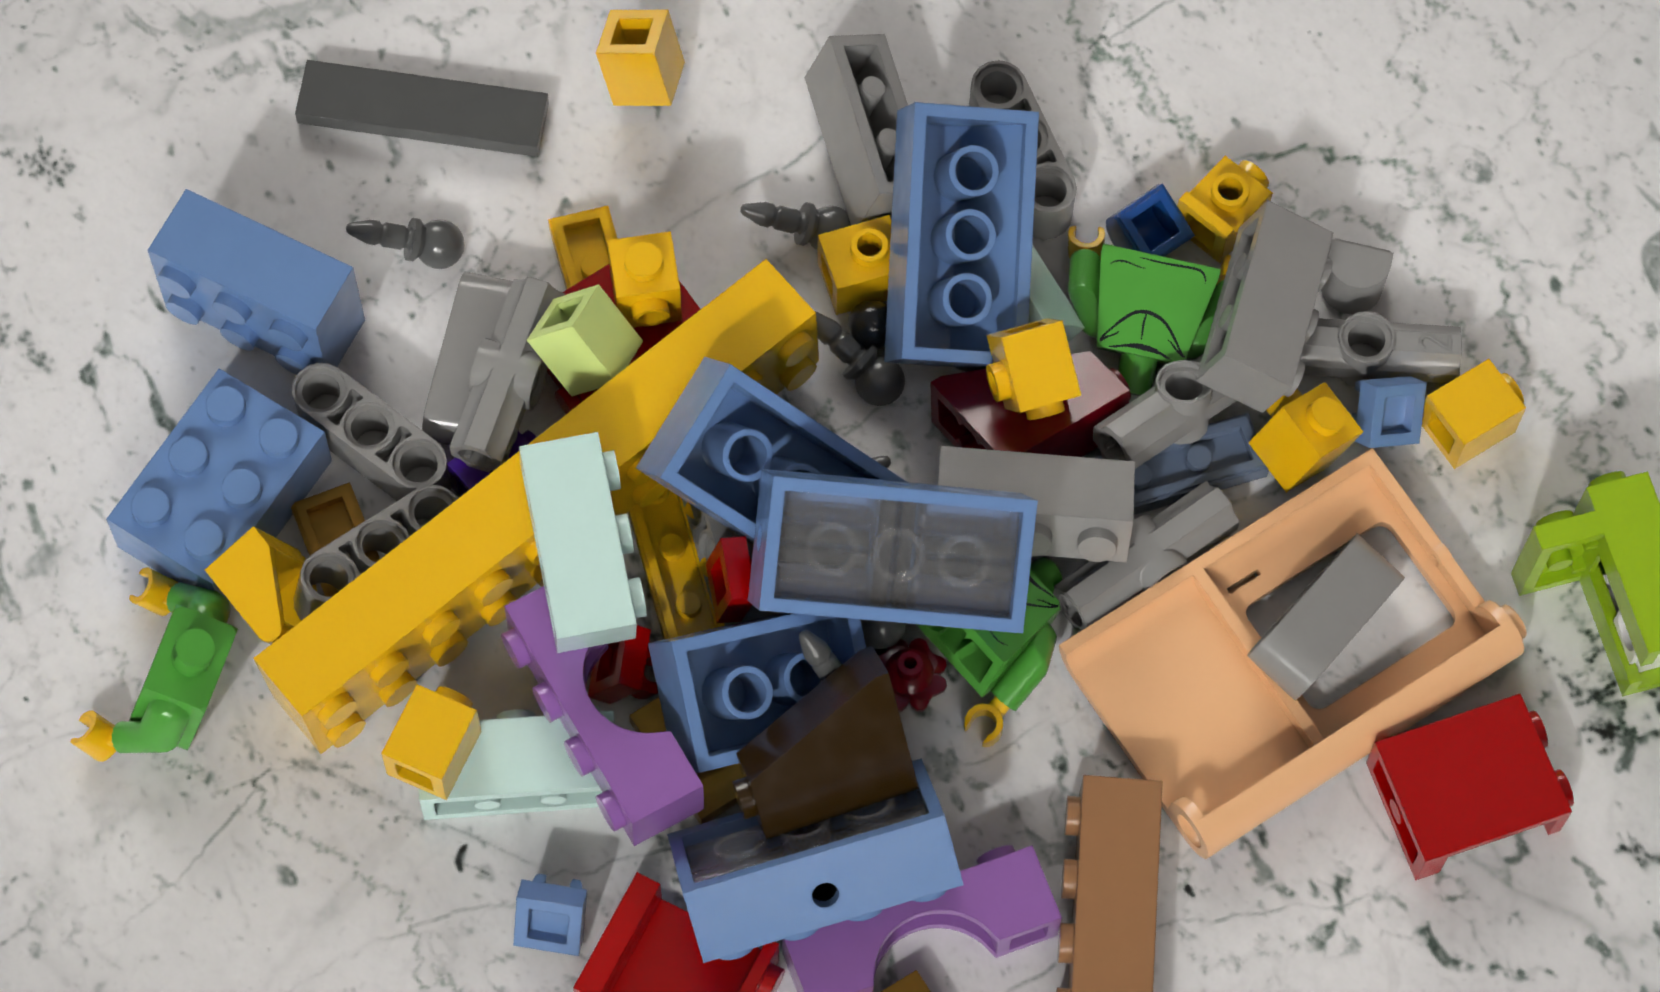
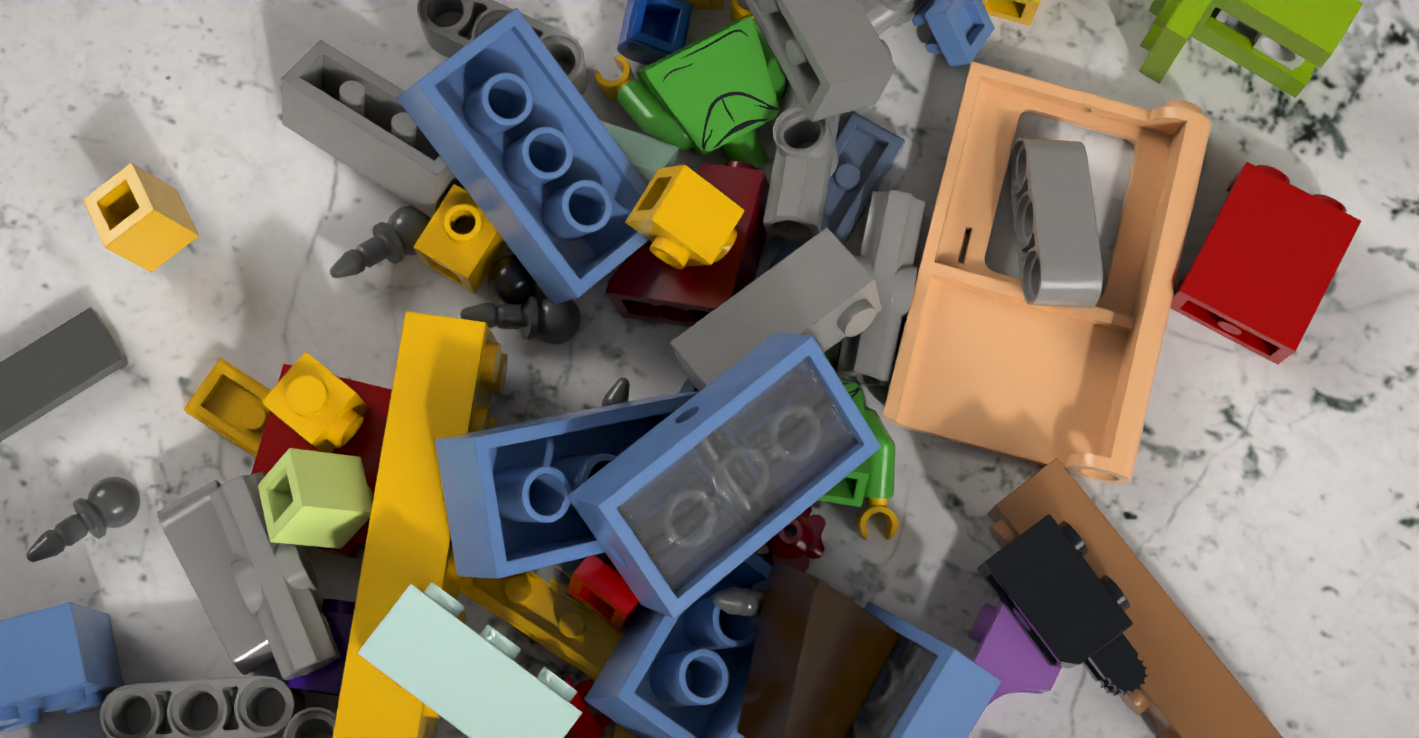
camera: 40 degrees left, 10 degrees up
(1062, 876) = (1065, 605): none -> black hinge
(1304, 435) = (918, 94): yellow brick -> none

